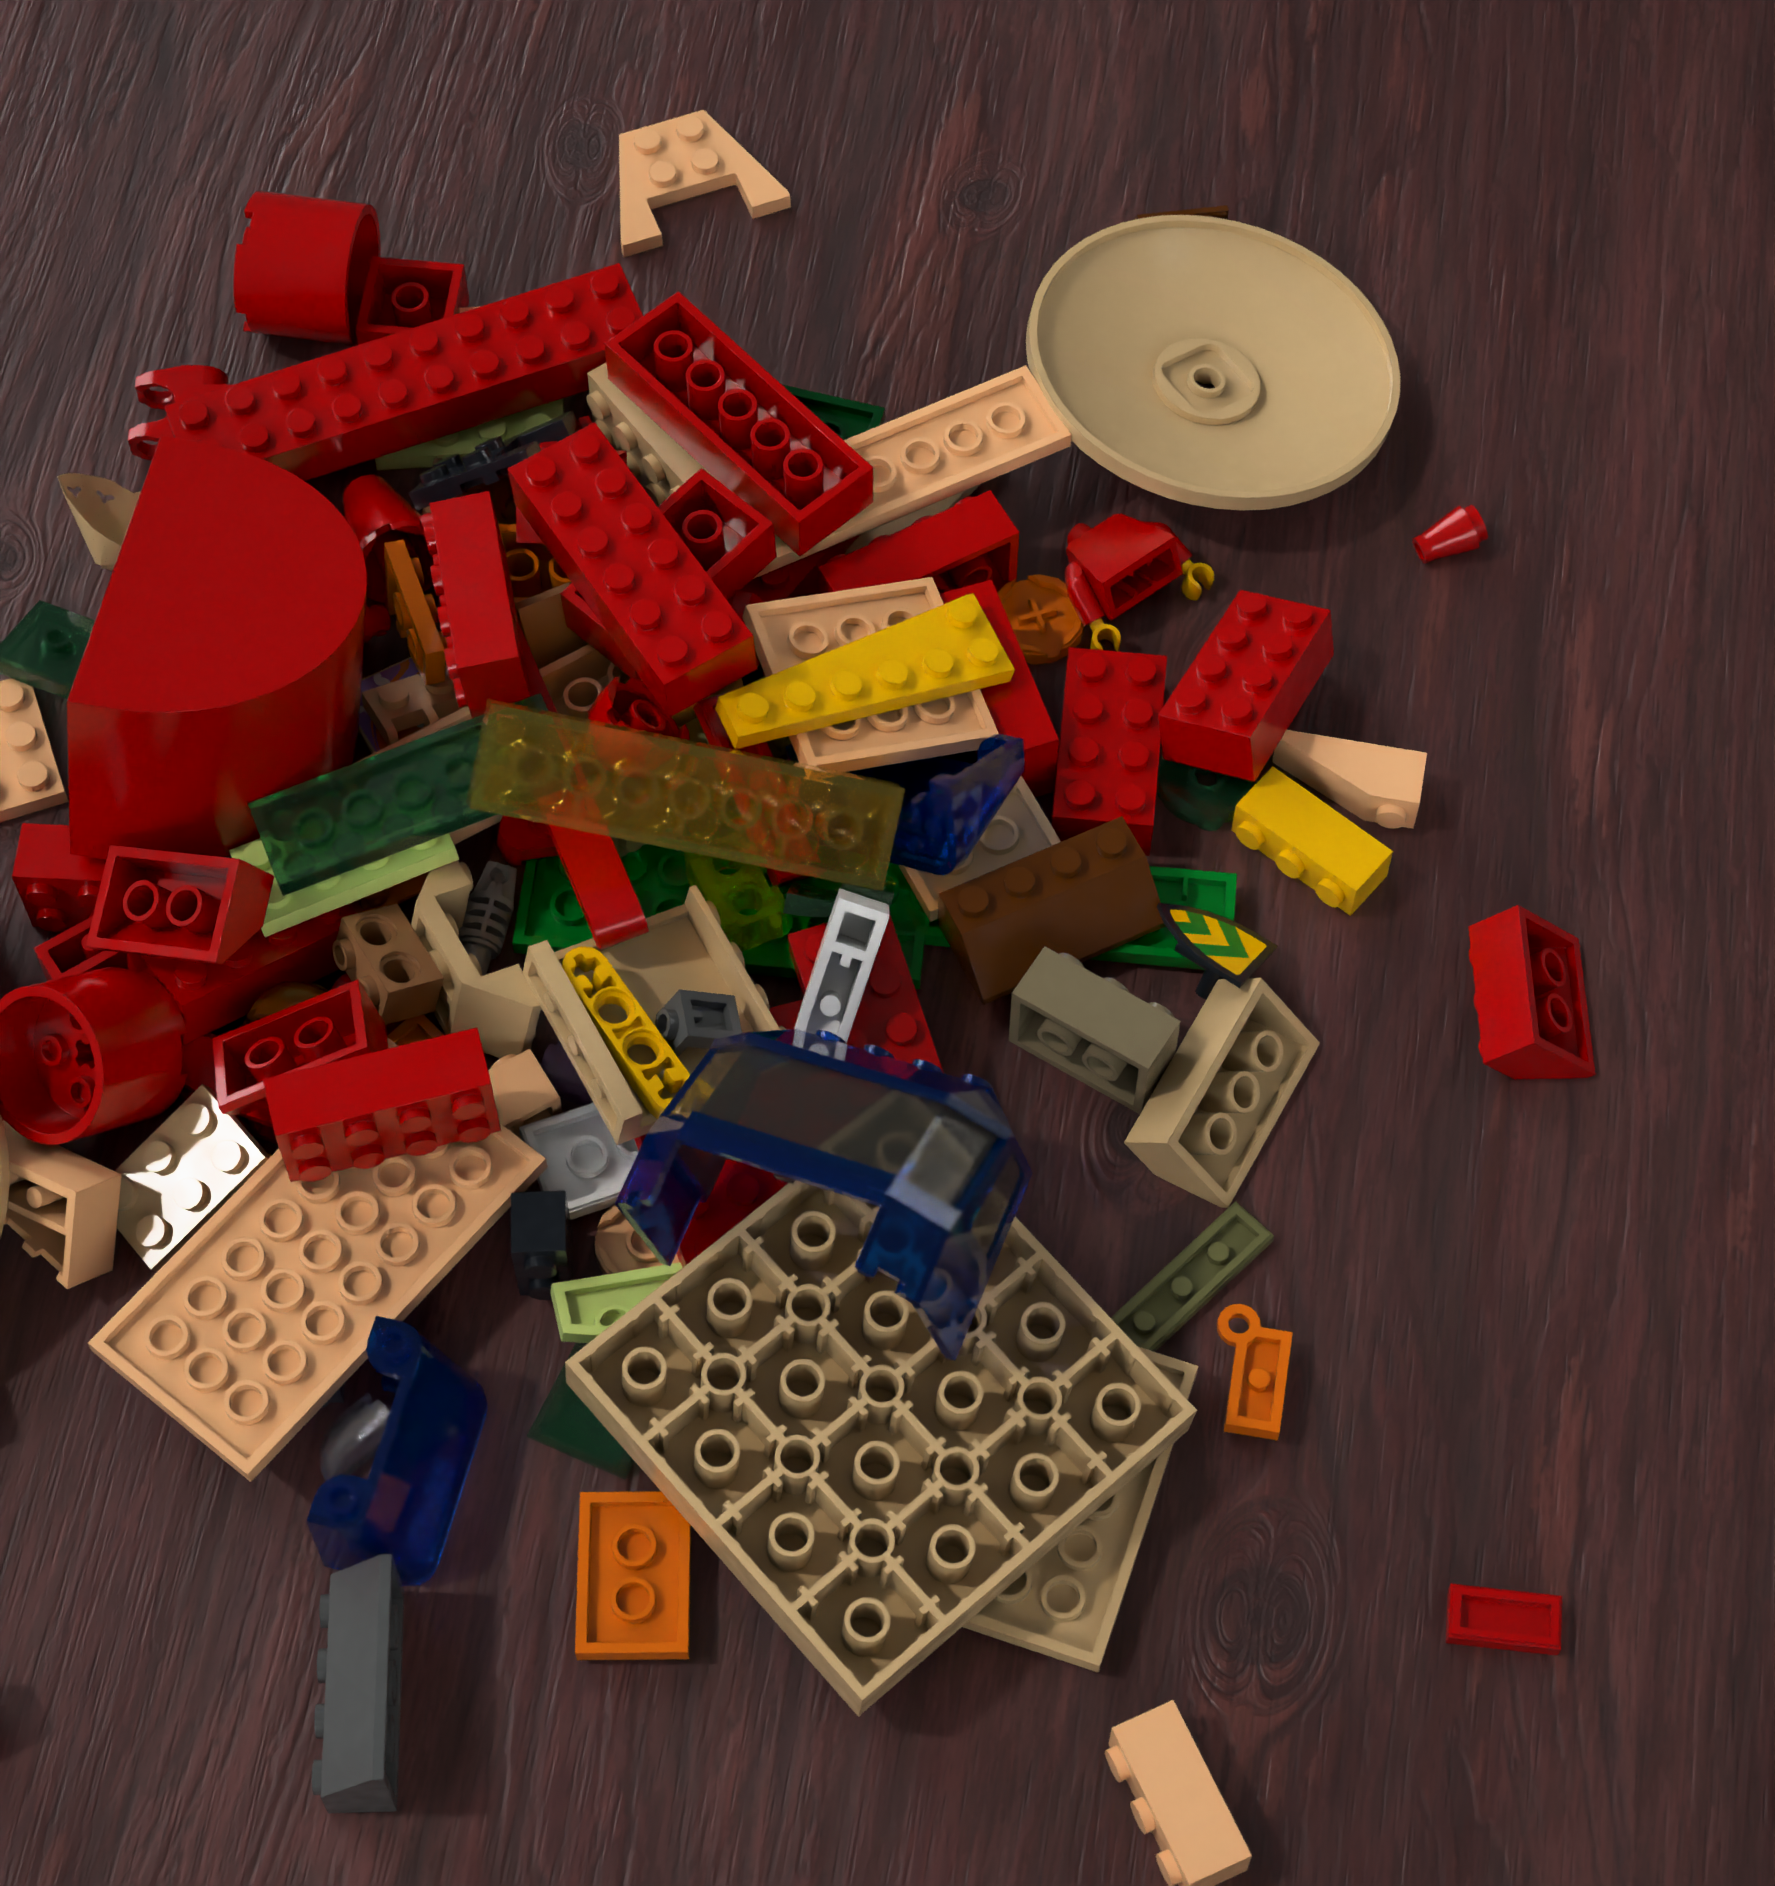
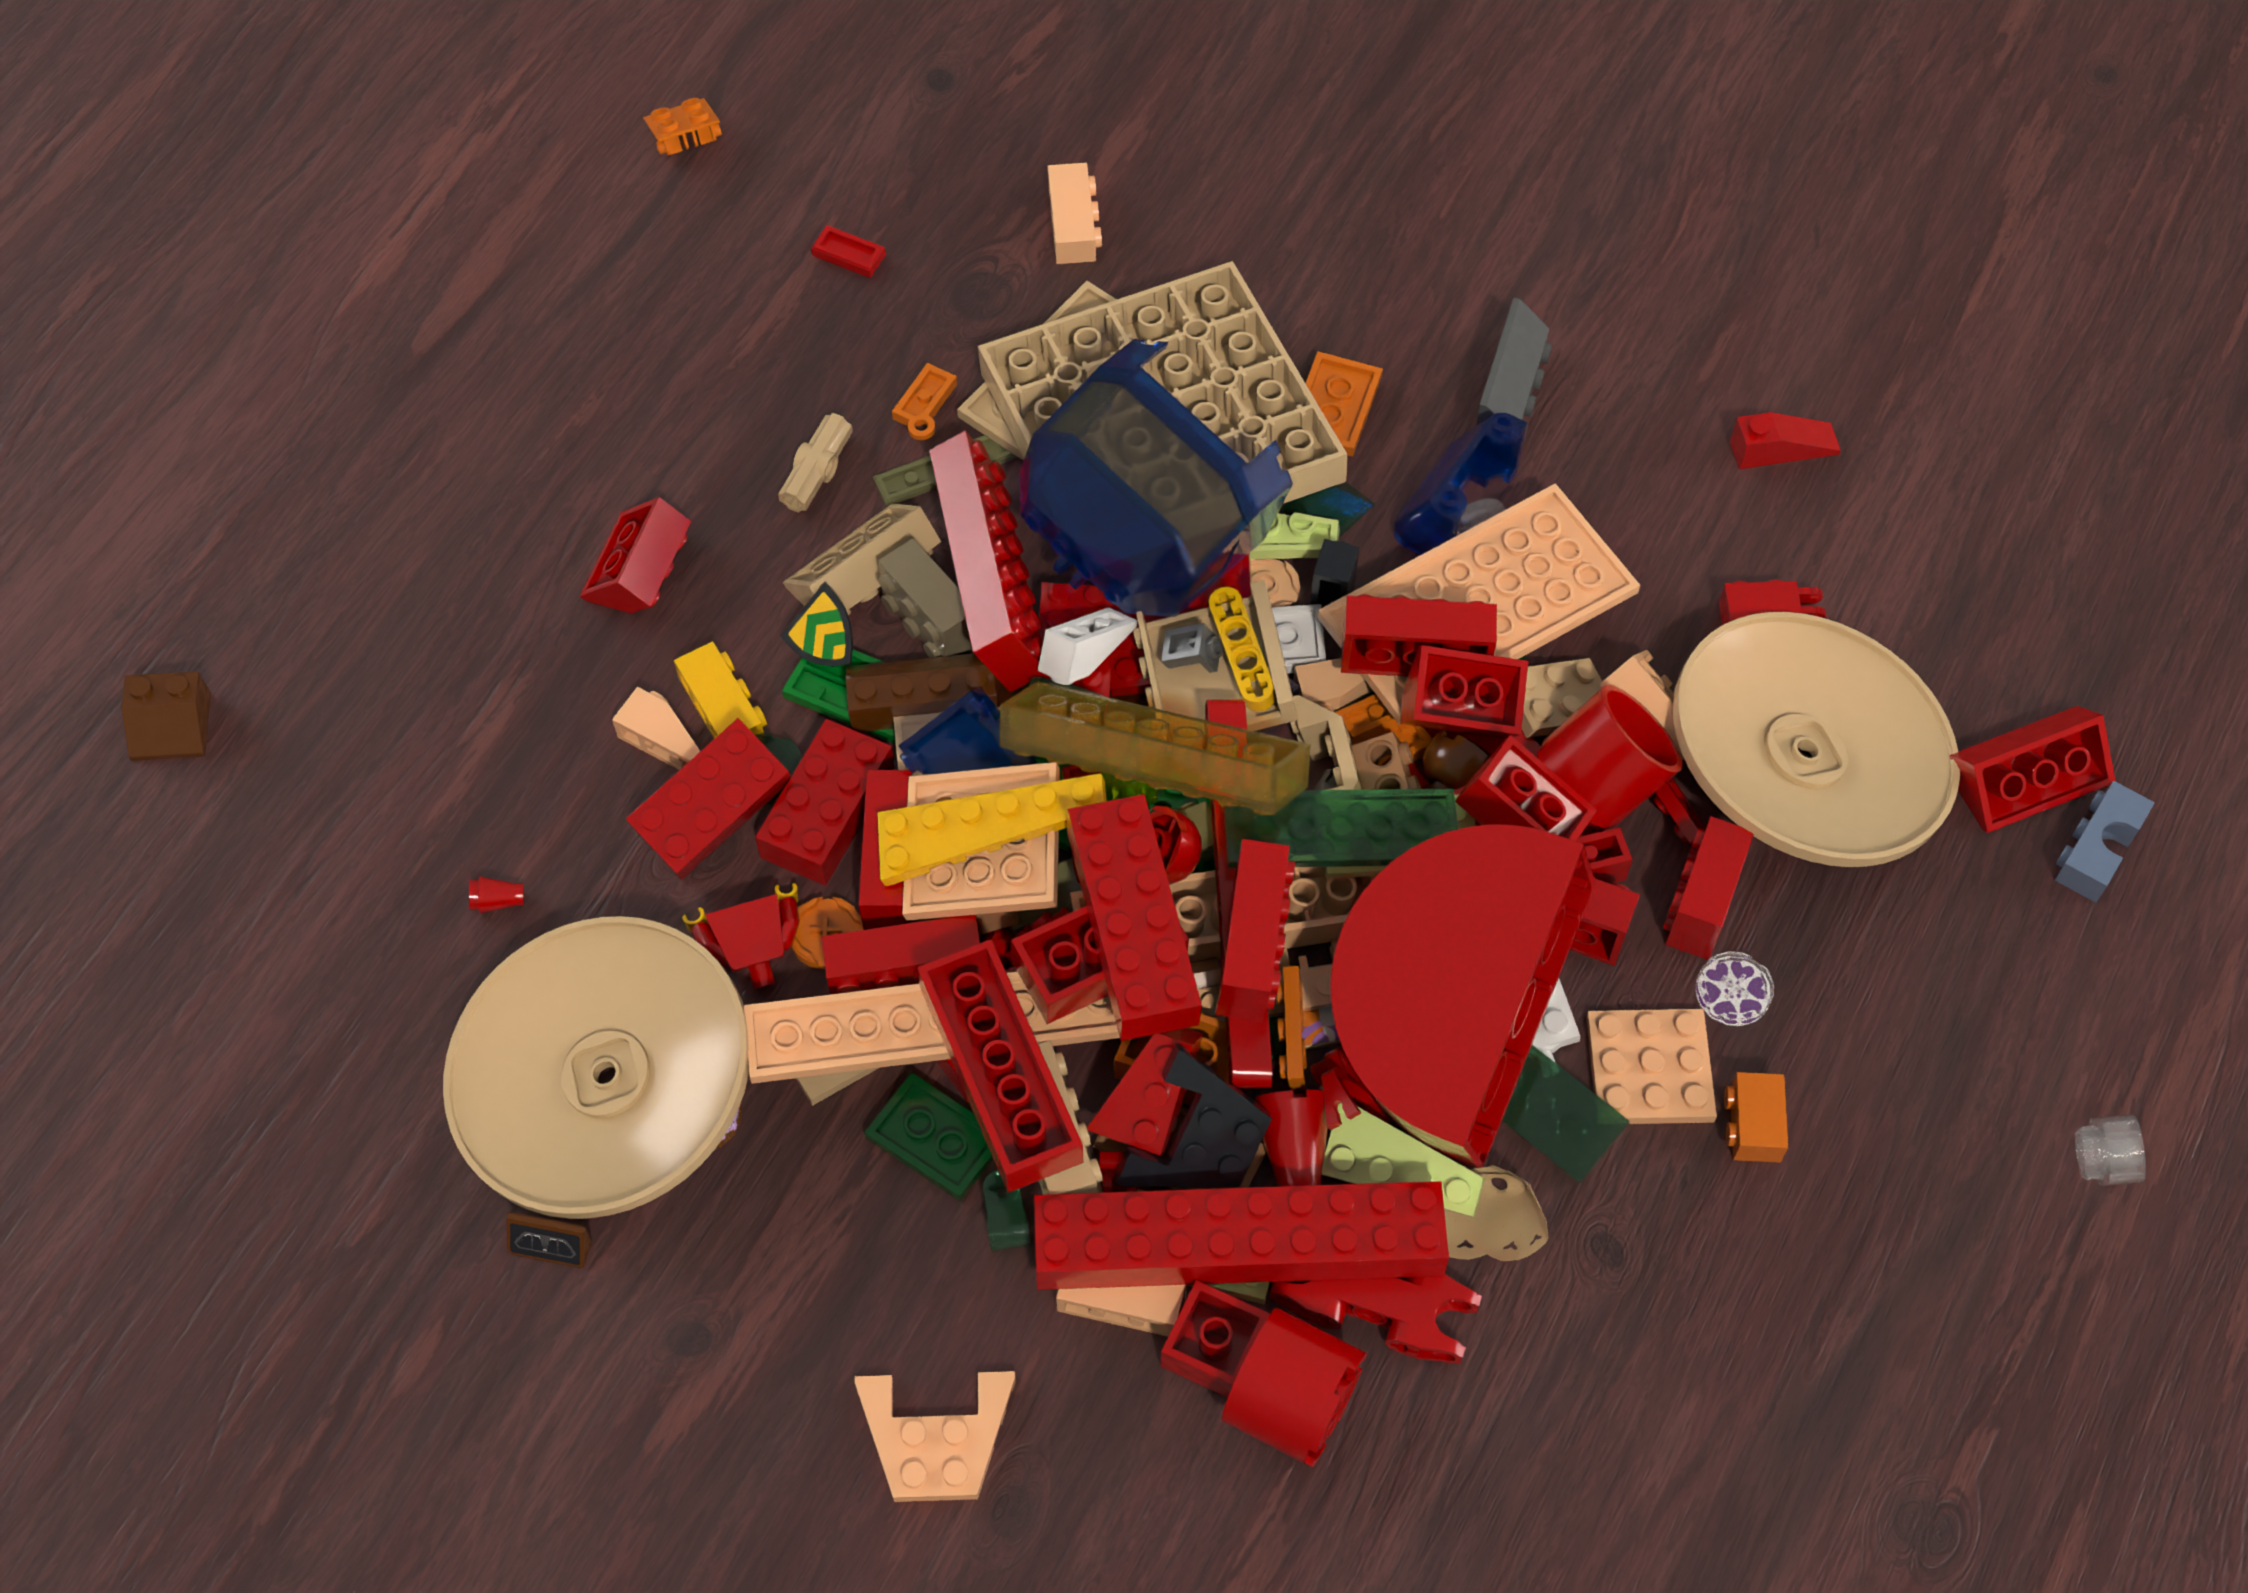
camera: 160 degrees left, 0 degrees up
(1015, 1035) = (988, 560): none -> brick
(1362, 1222) = (815, 462): none -> tan piece

